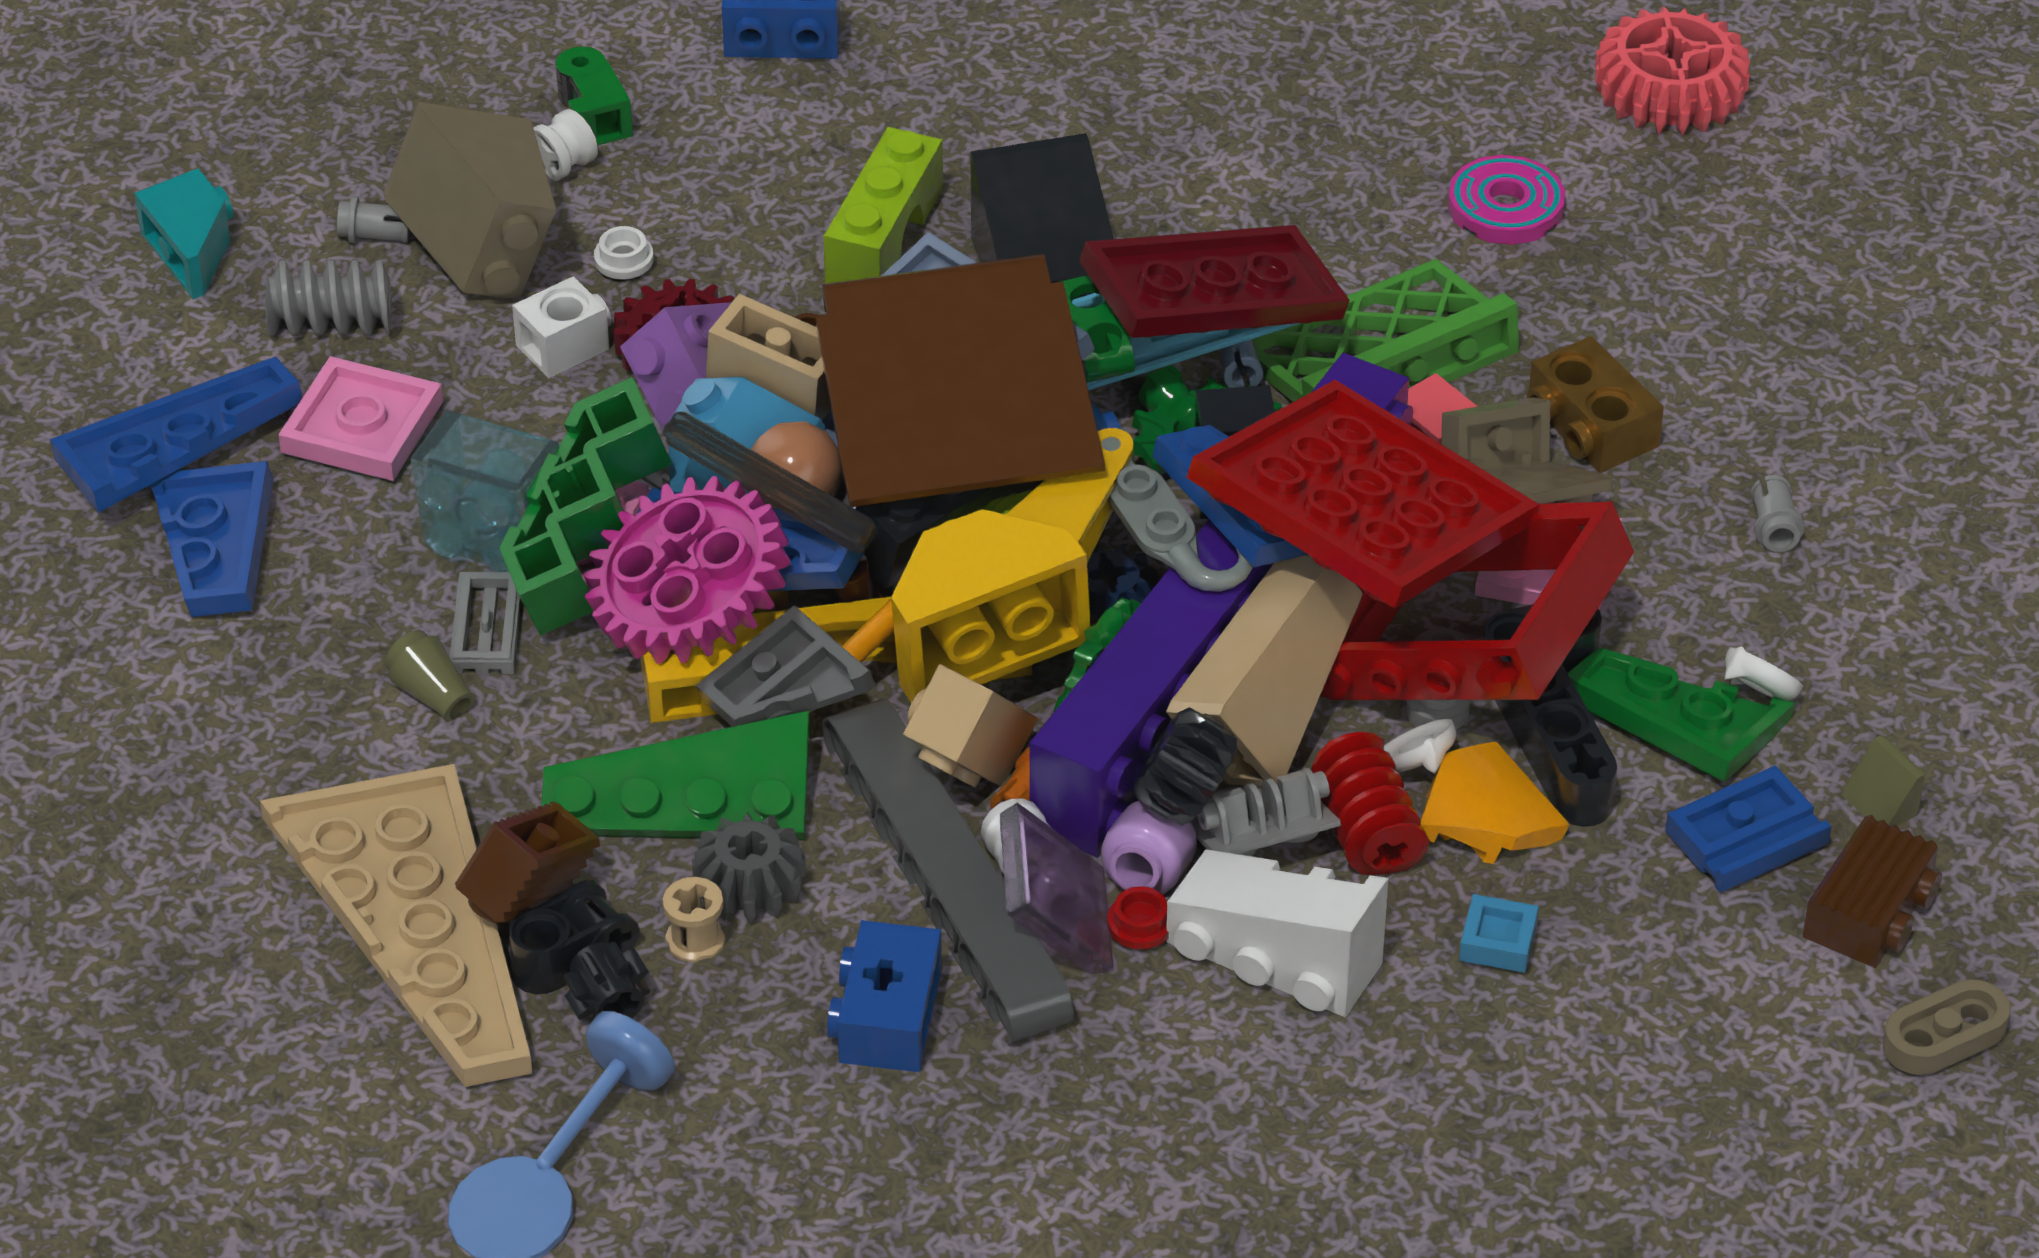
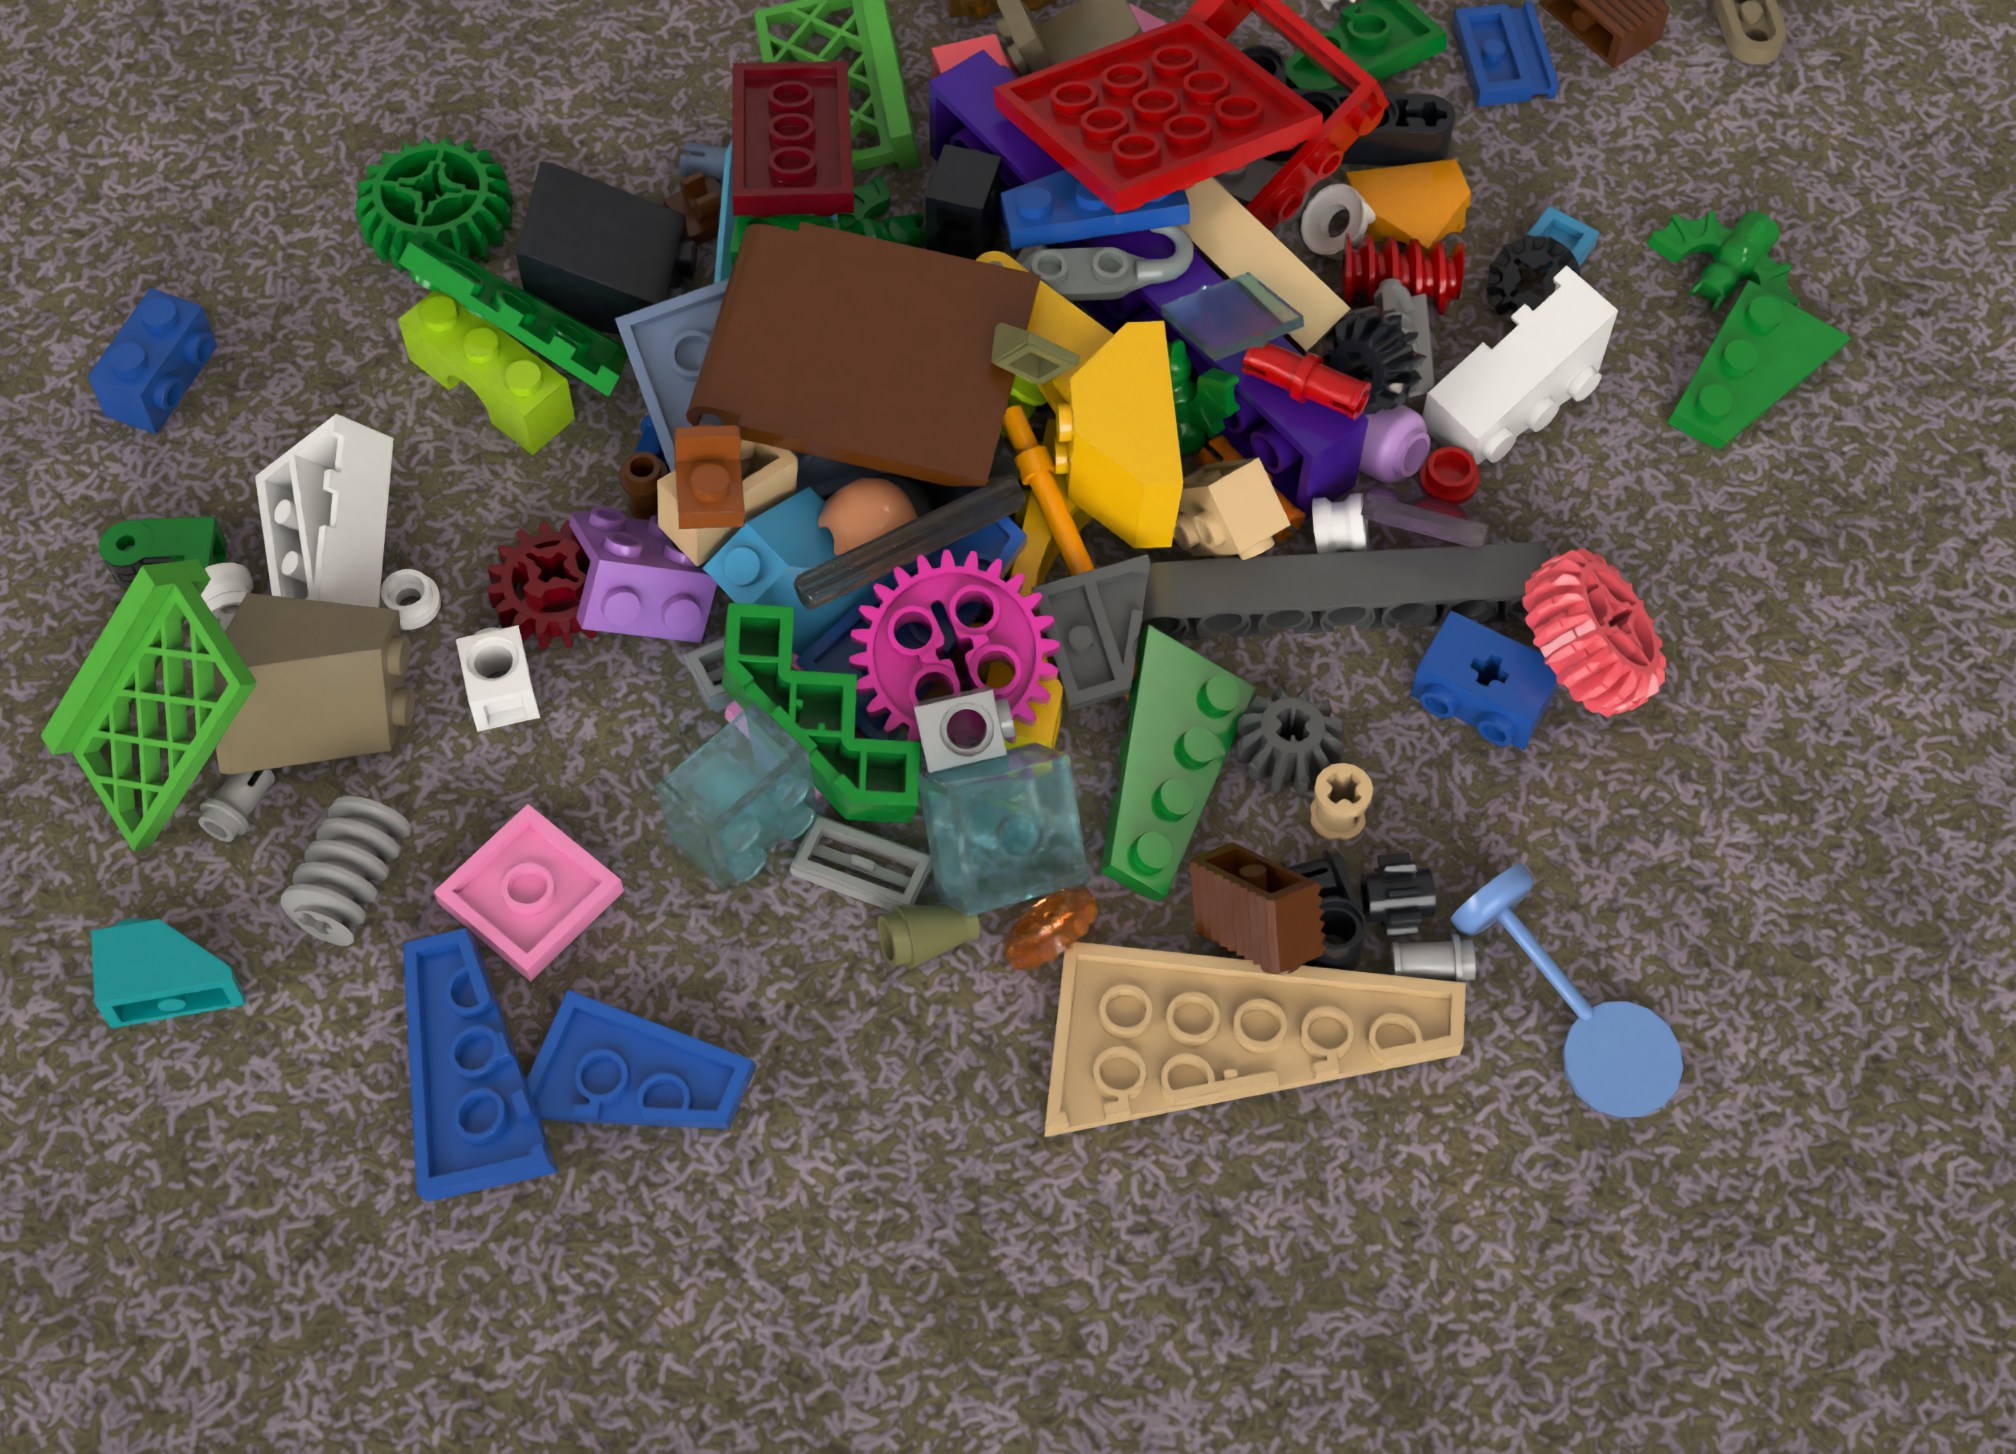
camera: 70 degrees left, 15 degrees up
(425, 75) = (123, 671): none -> bright green fence
(459, 745) = (1050, 928): none -> clear orange gear
(529, 664) = (1003, 829): none -> clear light blue brick
(553, 1037) = (1435, 960): none -> light grey pin
(595, 581) = (932, 722): none -> light grey brick
(645, 167) = (328, 514): none -> white wedge
(747, 317) = (709, 476): none -> dark orange bracket
(928, 172) = (521, 314): none -> green wing
(995, 996) = (1594, 632): none -> coral gear
(1001, 474) = (1030, 354): none -> olive slope
(1057, 104) = (439, 191): none -> green gear
(1106, 699) = (1307, 379): none -> red pin
(1149, 623) = (1232, 316): none -> clear light blue piece
(1417, 932) = (1535, 253): none -> black gear
(1434, 1129) = (1752, 364): none -> green wing
(1572, 1088) = (1736, 254): none -> green animal

